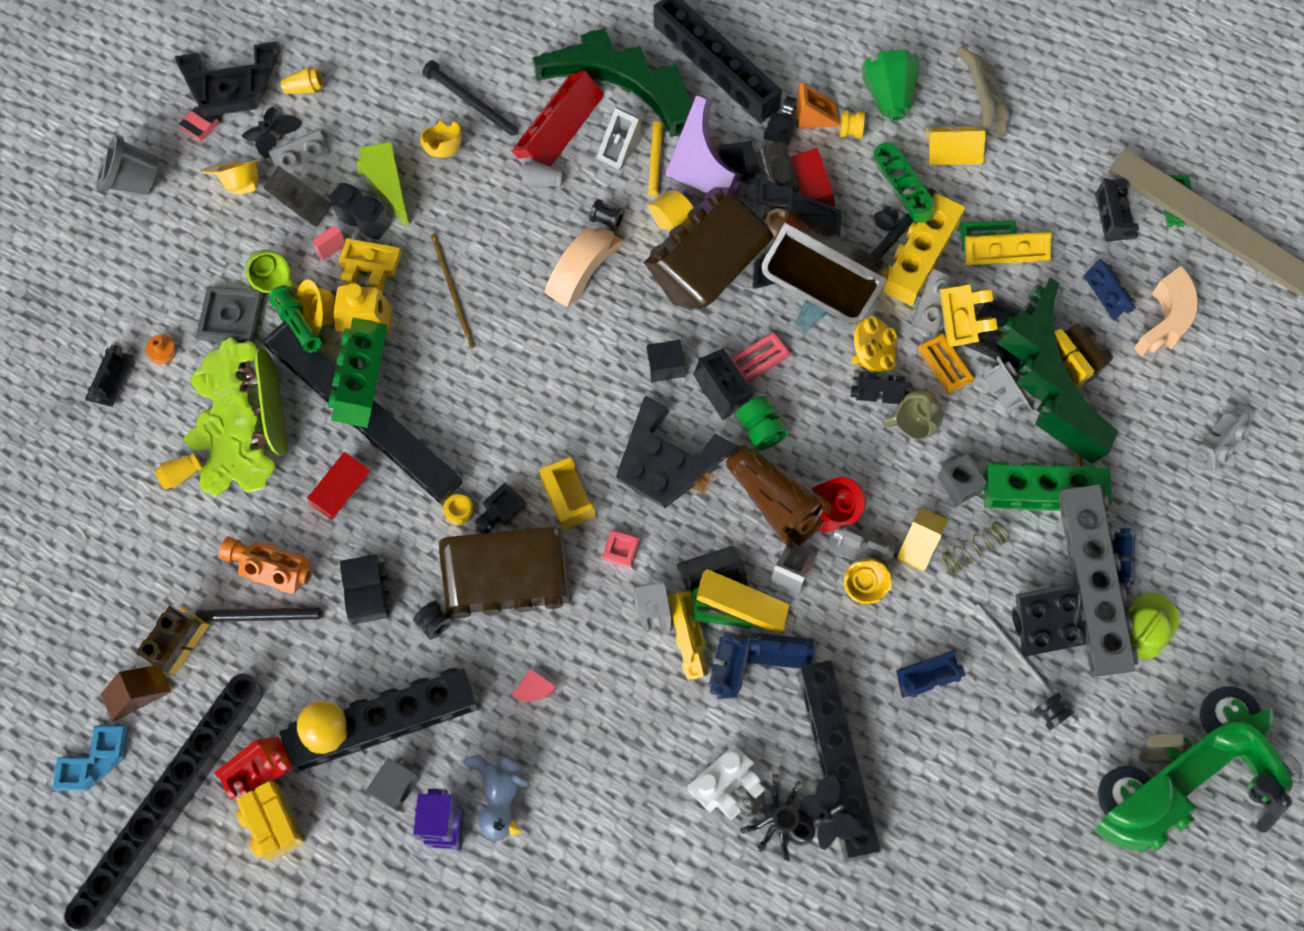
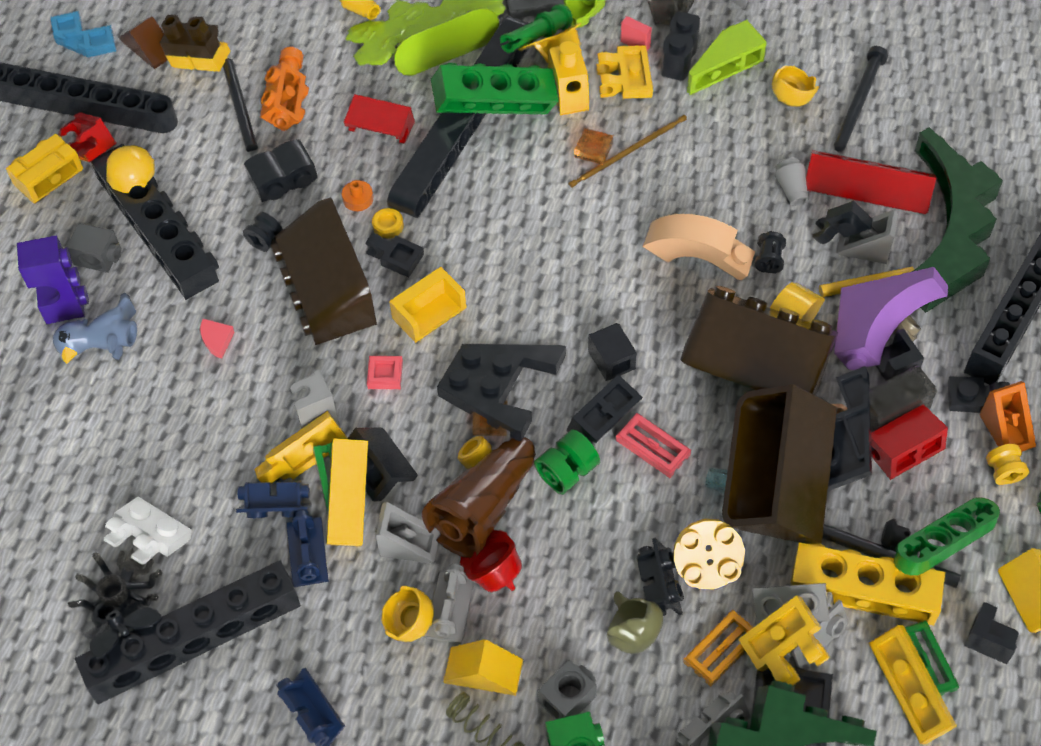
camera: 75 degrees right, 10 degrees down
(417, 528) = (357, 195): none -> orange tile
(442, 314) = (593, 146): none -> clear orange plate
(602, 149) = (843, 219): none -> black plate
(729, 493) = (473, 451): none -> yellow tile
(981, 186) = (991, 636): none -> black panel

